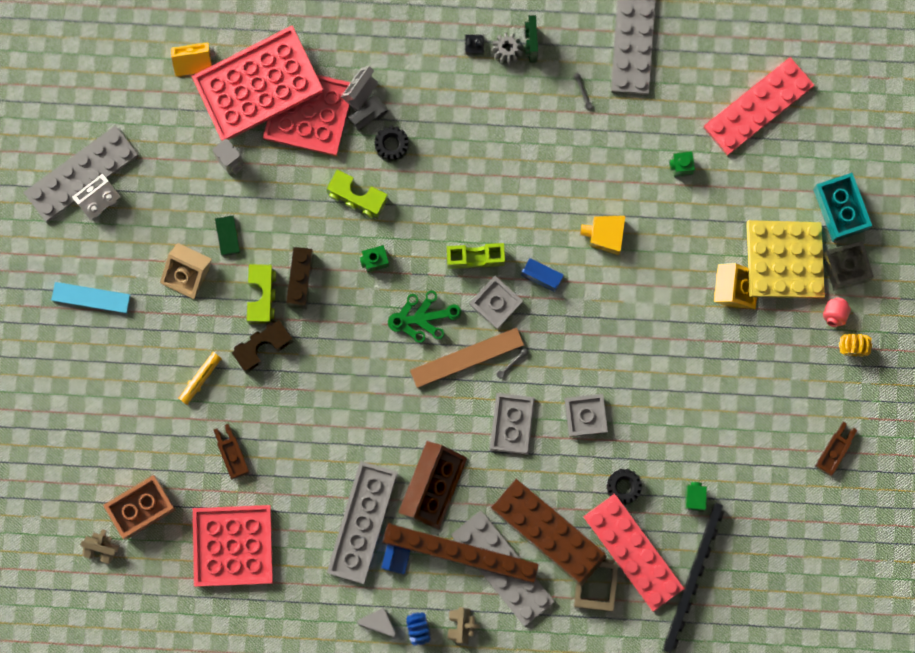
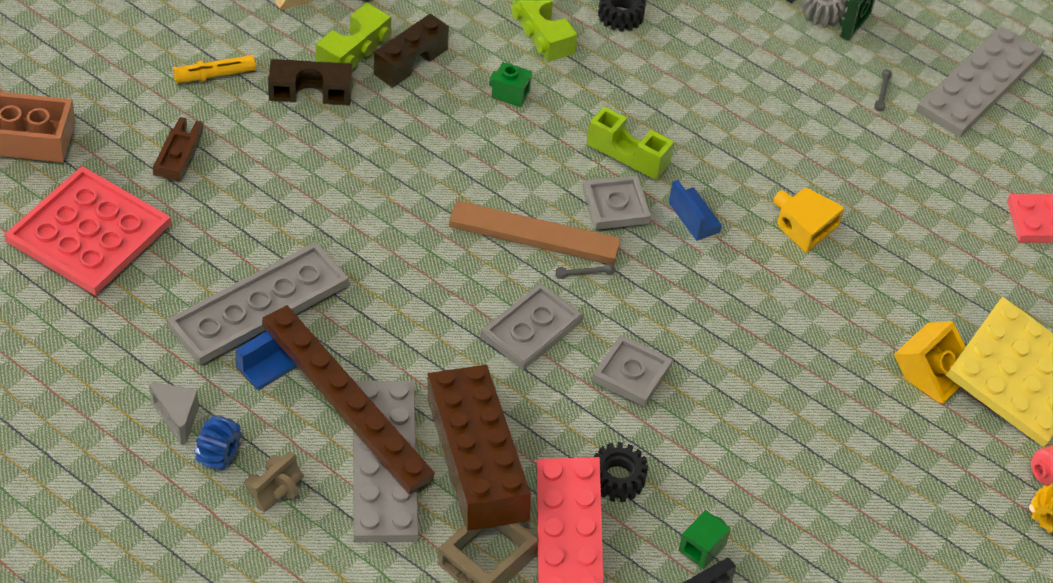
camera: 30 degrees right, 30 degrees down
(421, 317) = (485, 155): green plant -> none
(433, 485) = (379, 319): reddish brown slope -> none
(682, 164) = (955, 208): green brick -> none

